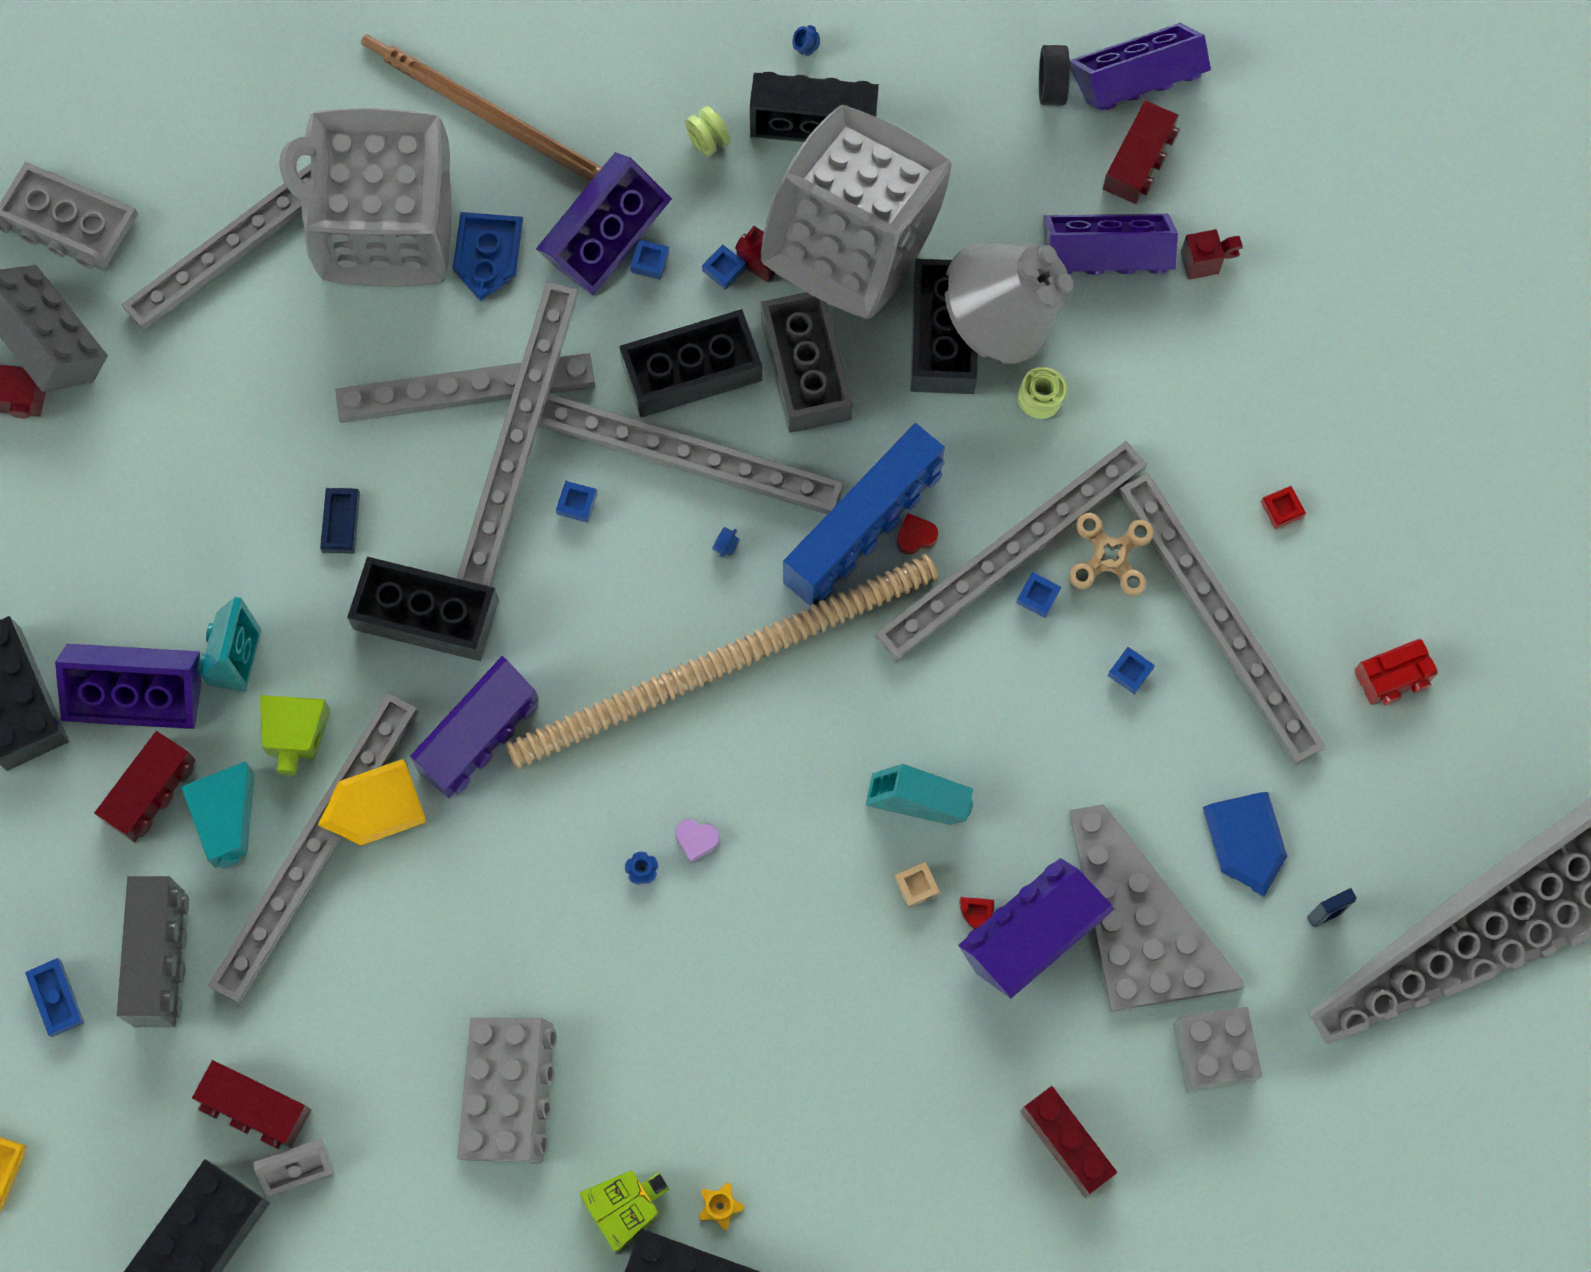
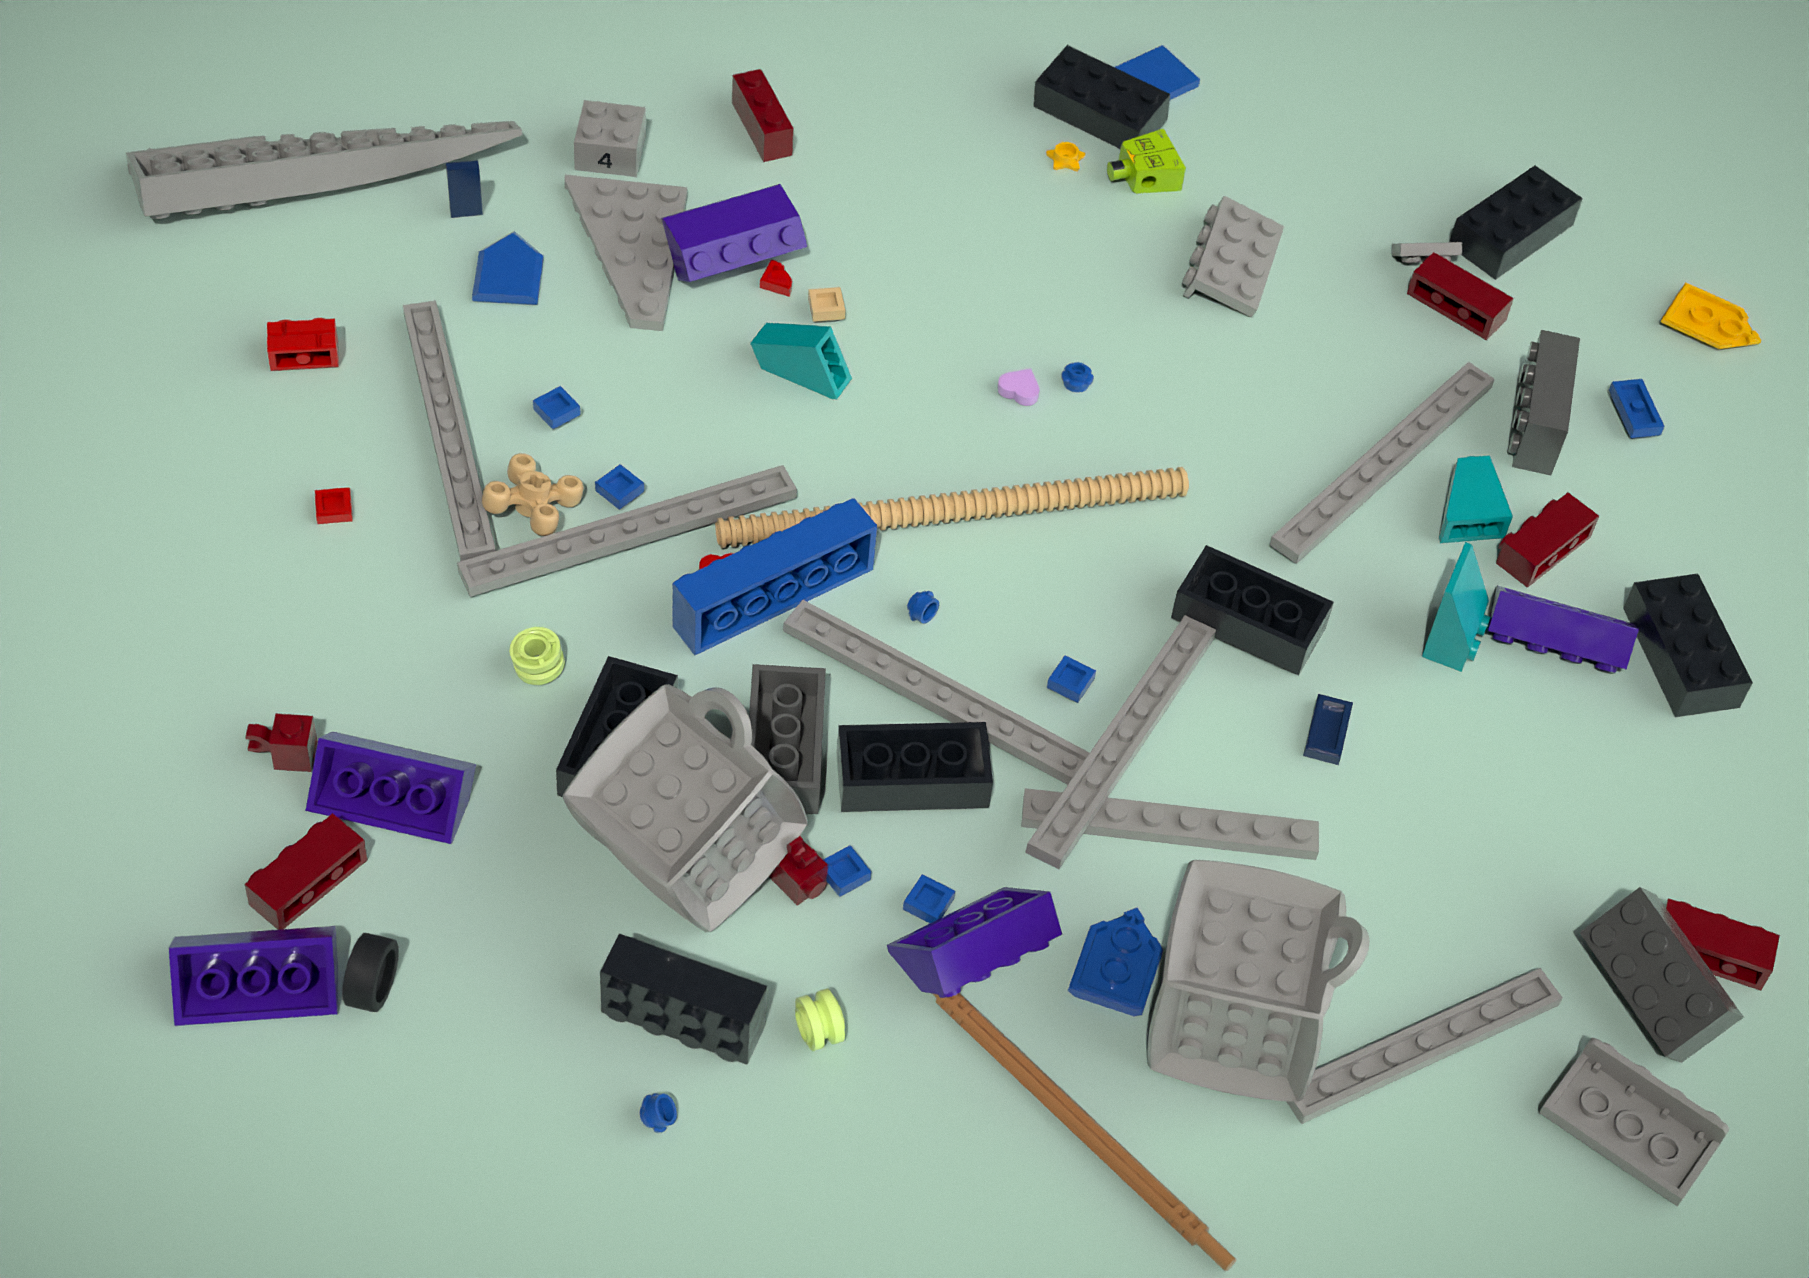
camera: 170 degrees left, 20 degrees down
(292, 729) = (1398, 552): lime torso -> none
(373, 805) = (1325, 470): yellow tile -> none
(475, 728) = (1217, 503): dark purple slope -> none
(1006, 298) = (538, 717): light grey cone -> none

